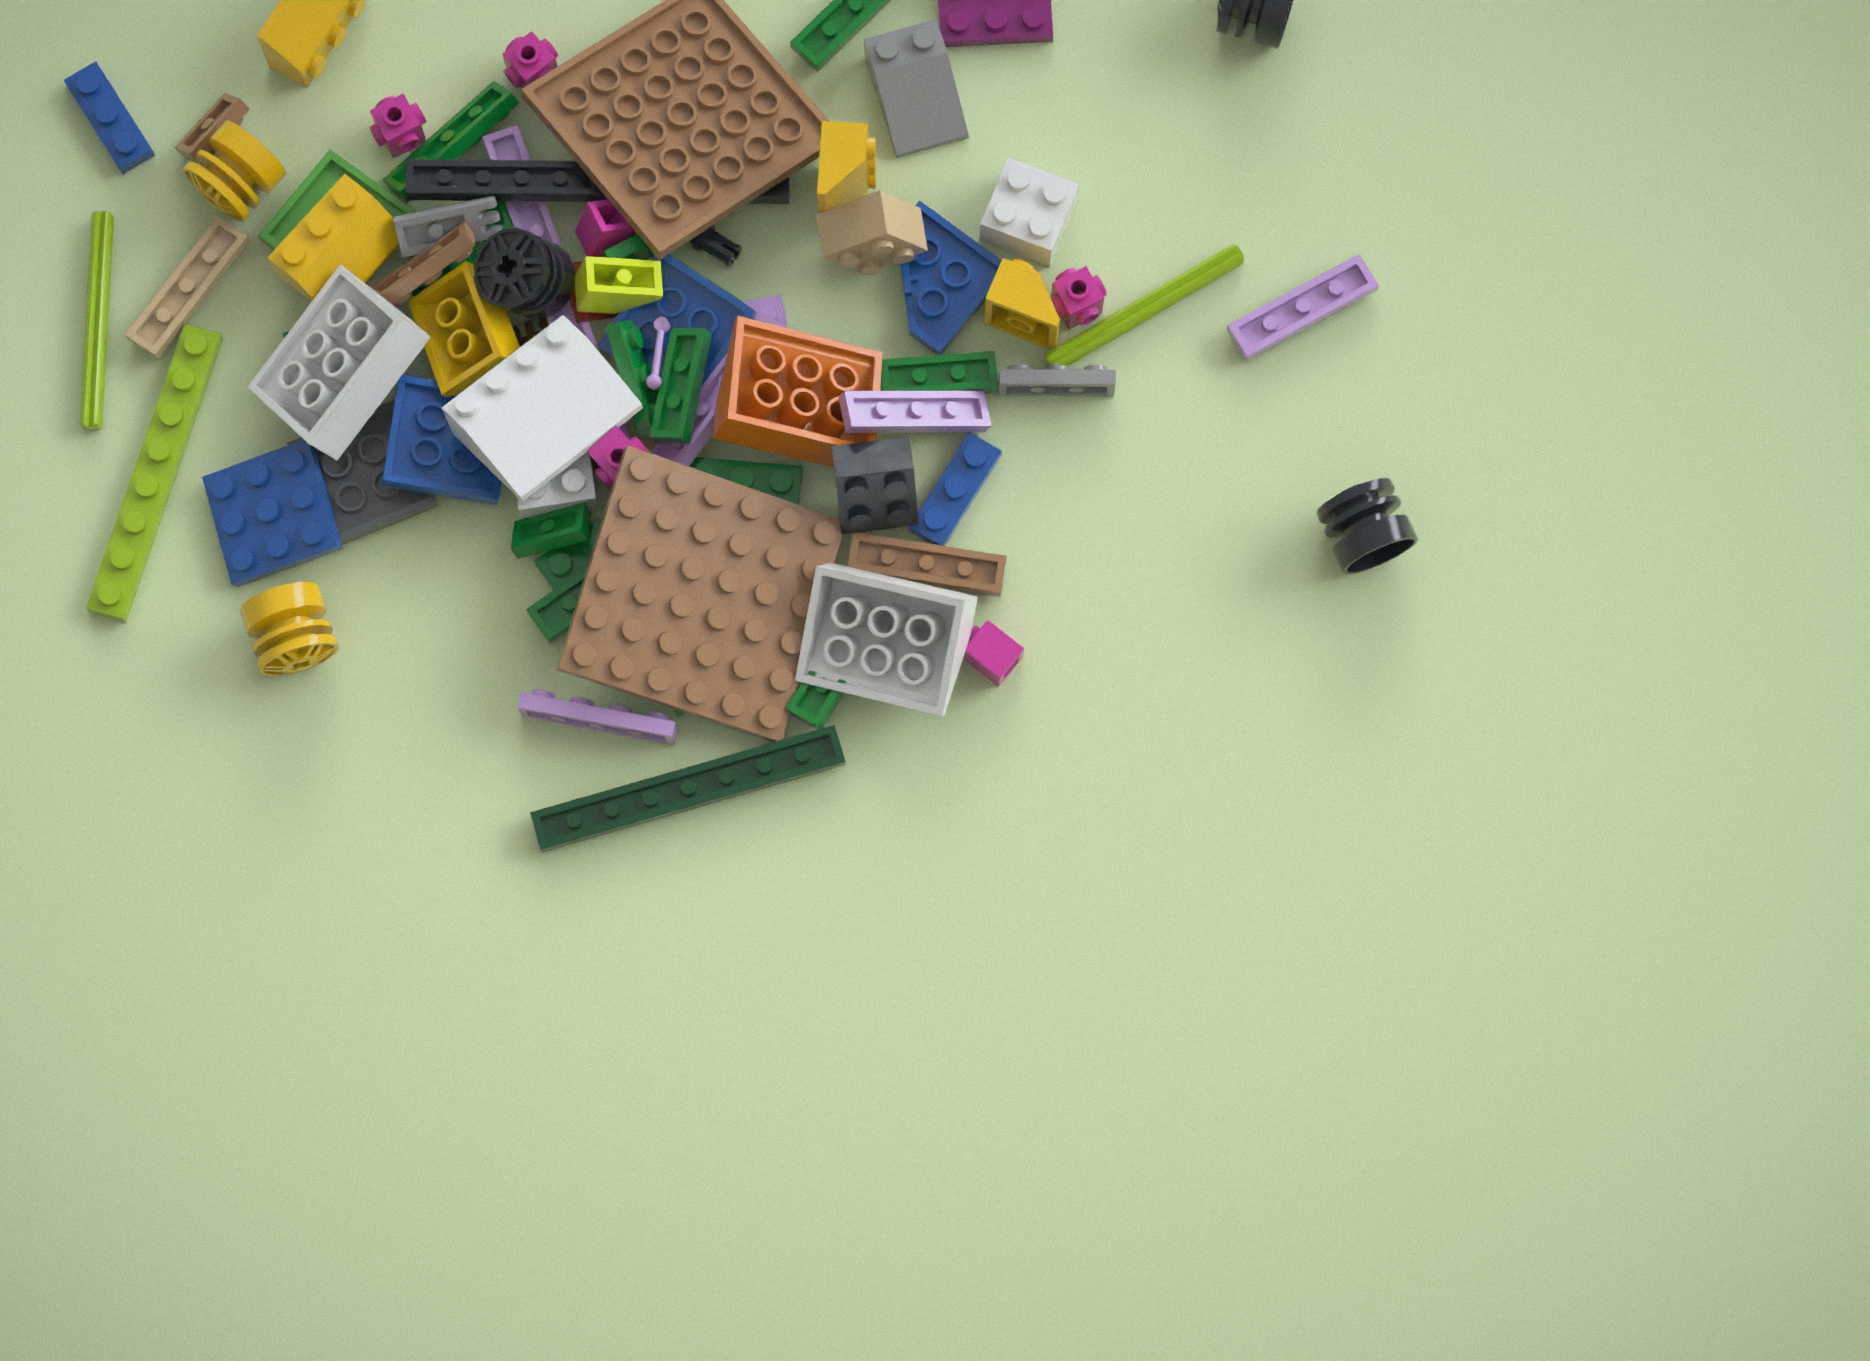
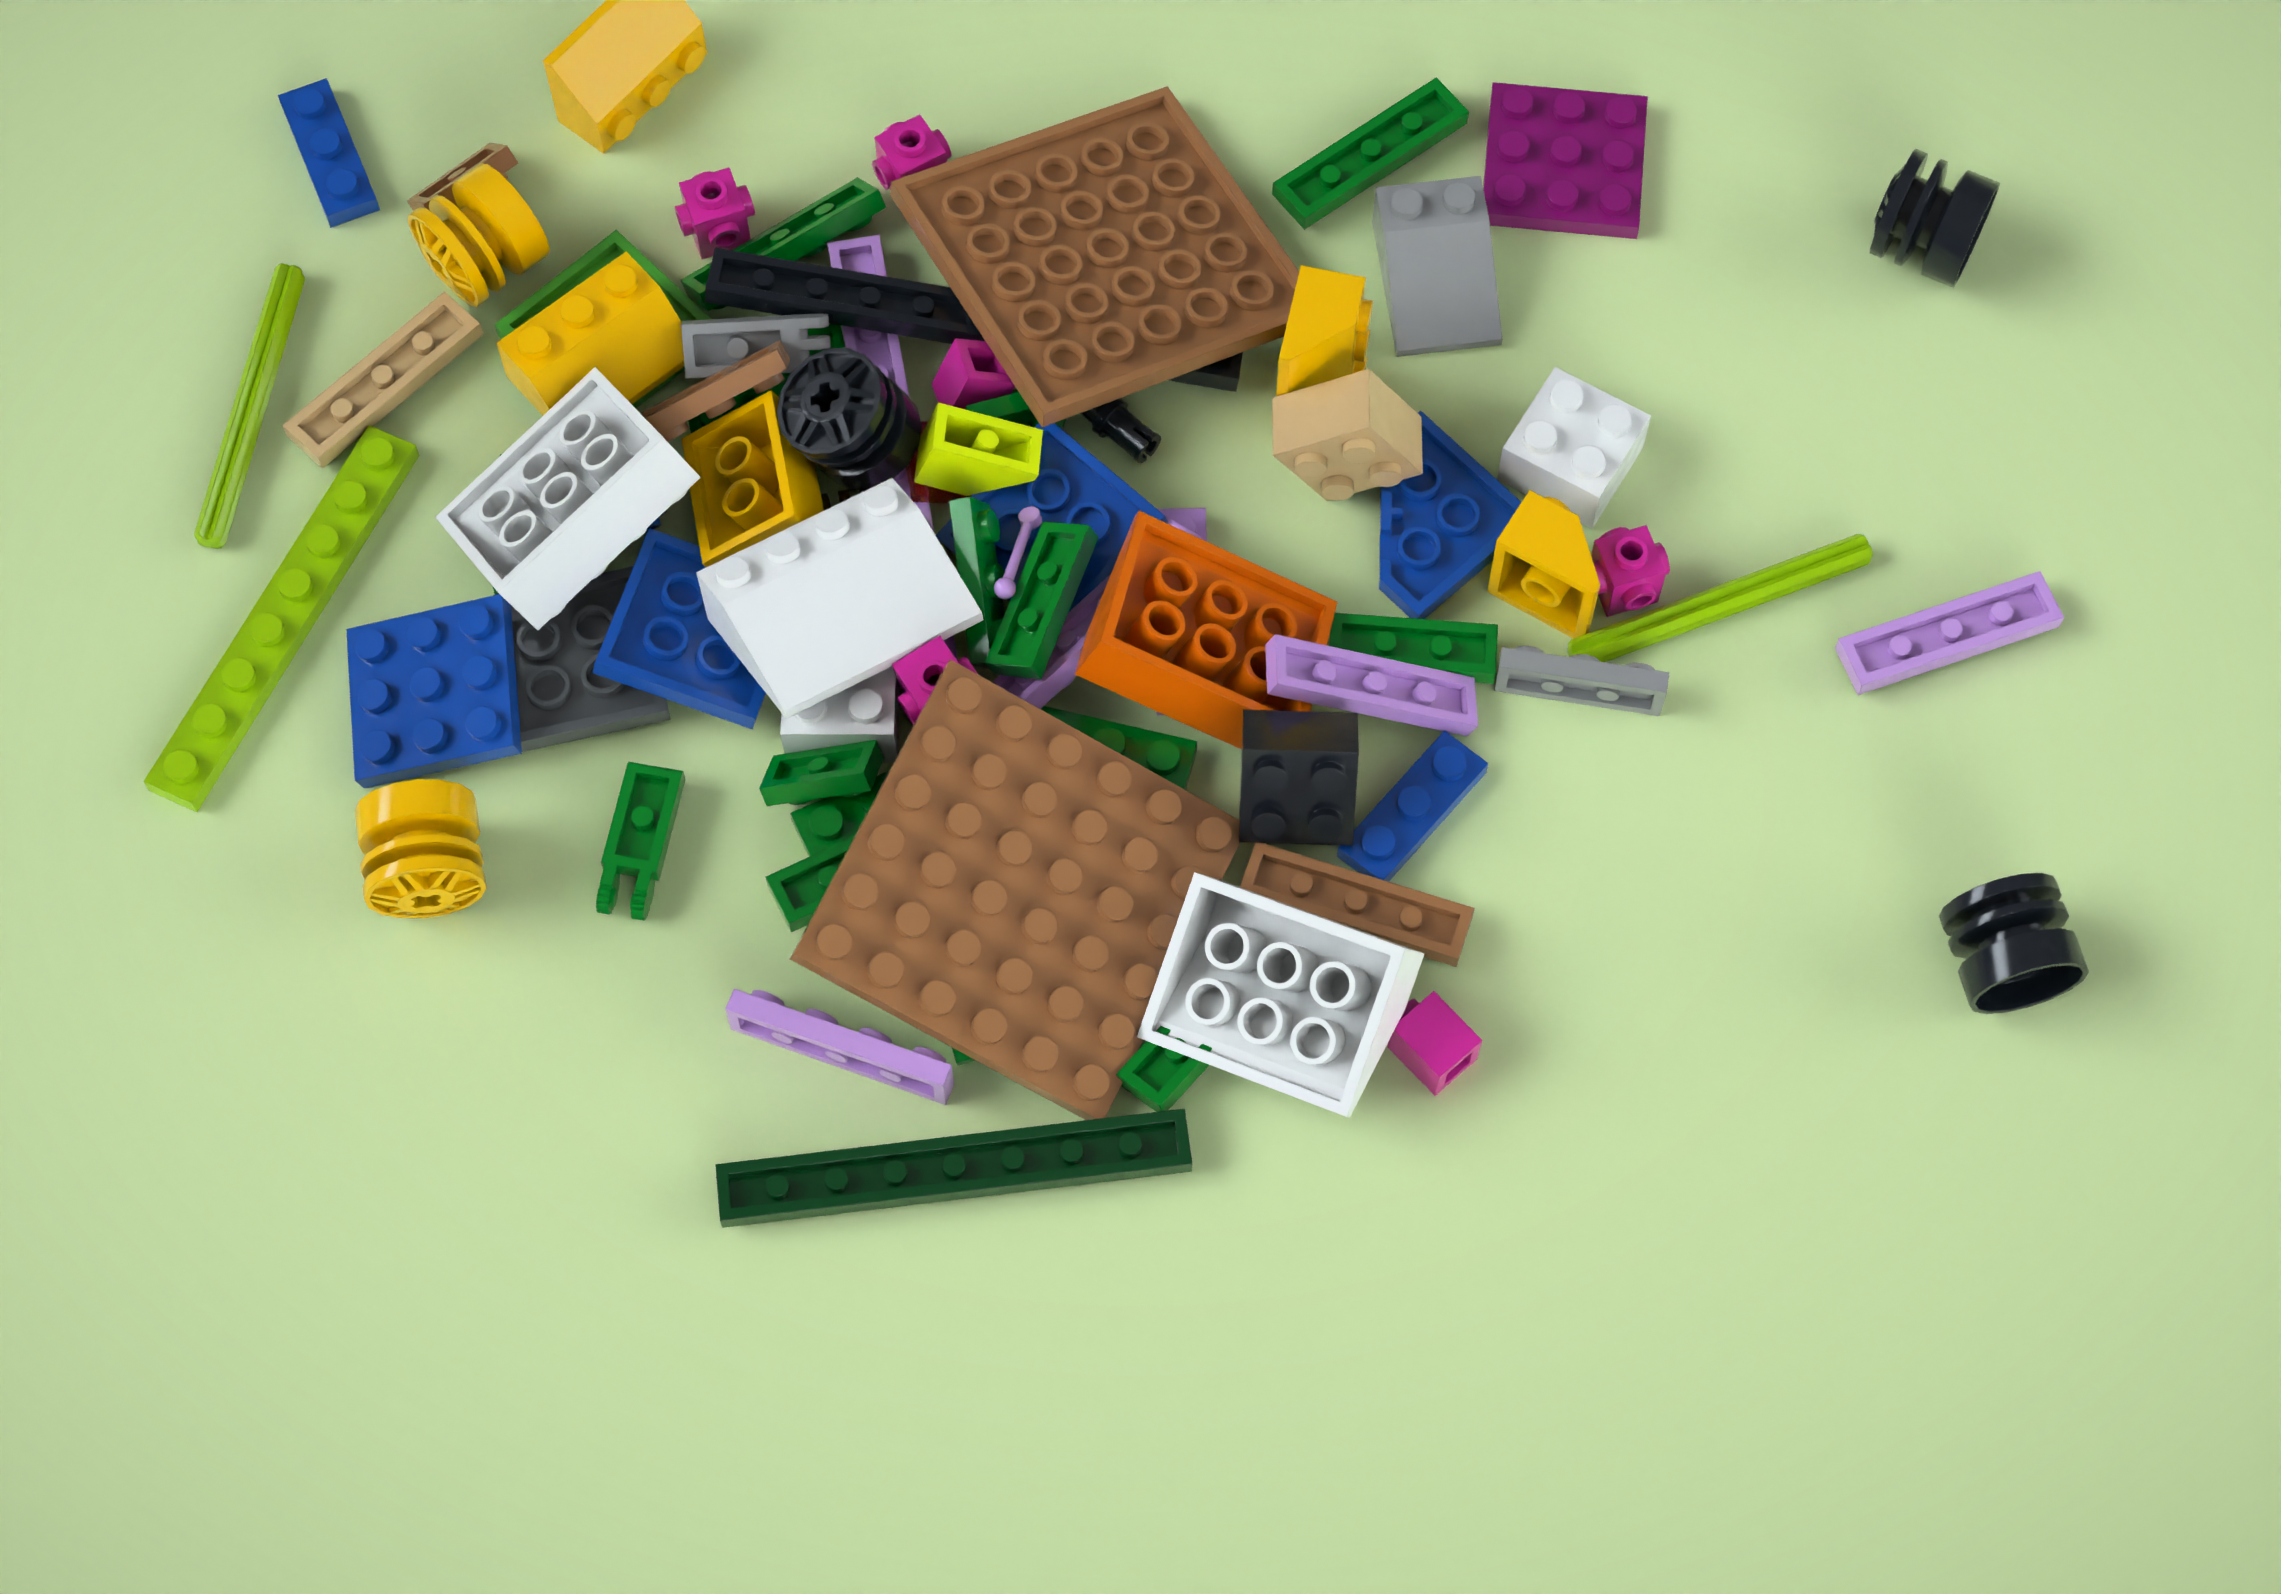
camera: 10 degrees right, 10 degrees down
(434, 591) = (639, 835): none -> green hinge

